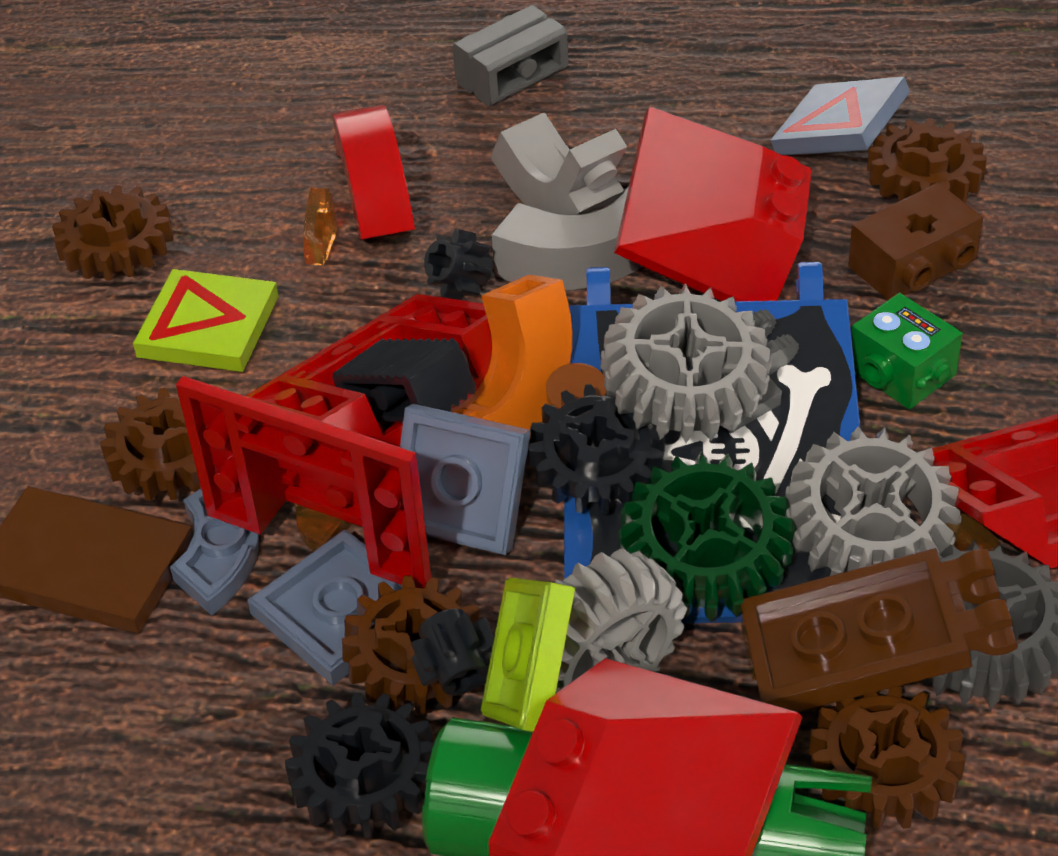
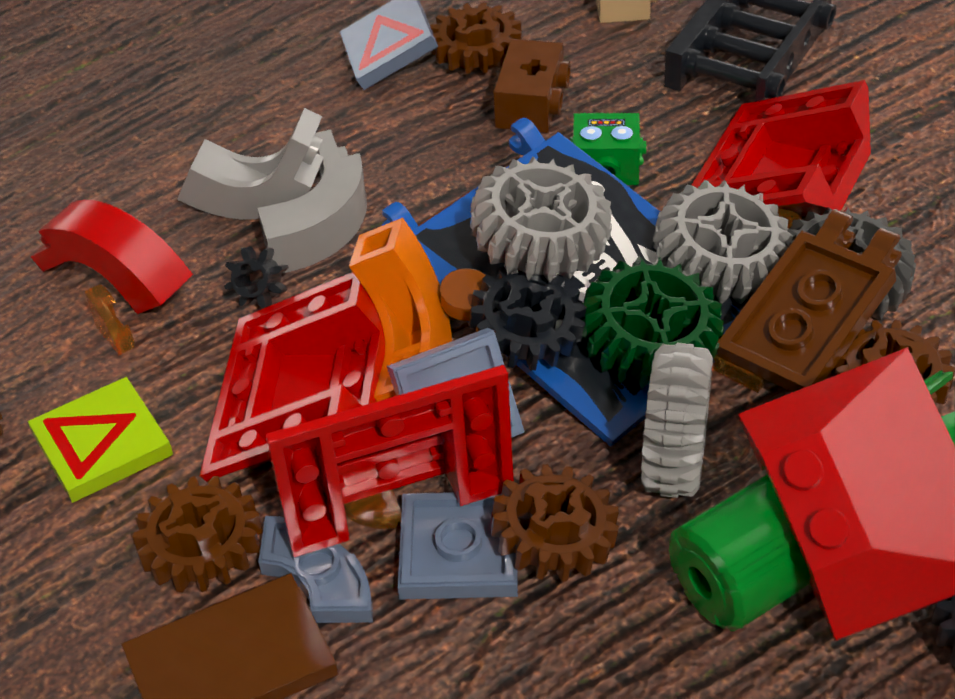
camera: 45 degrees left, 0 degrees up
(361, 763) = (621, 618): black gear -> none
(407, 374) = (347, 354): black brick -> none
(453, 651) = (613, 494): black gear -> none
(510, 55) = (101, 126): dark grey brick -> none
(526, 651) = (692, 446): lime tile -> none
(713, 209) = (398, 132): red slope -> none

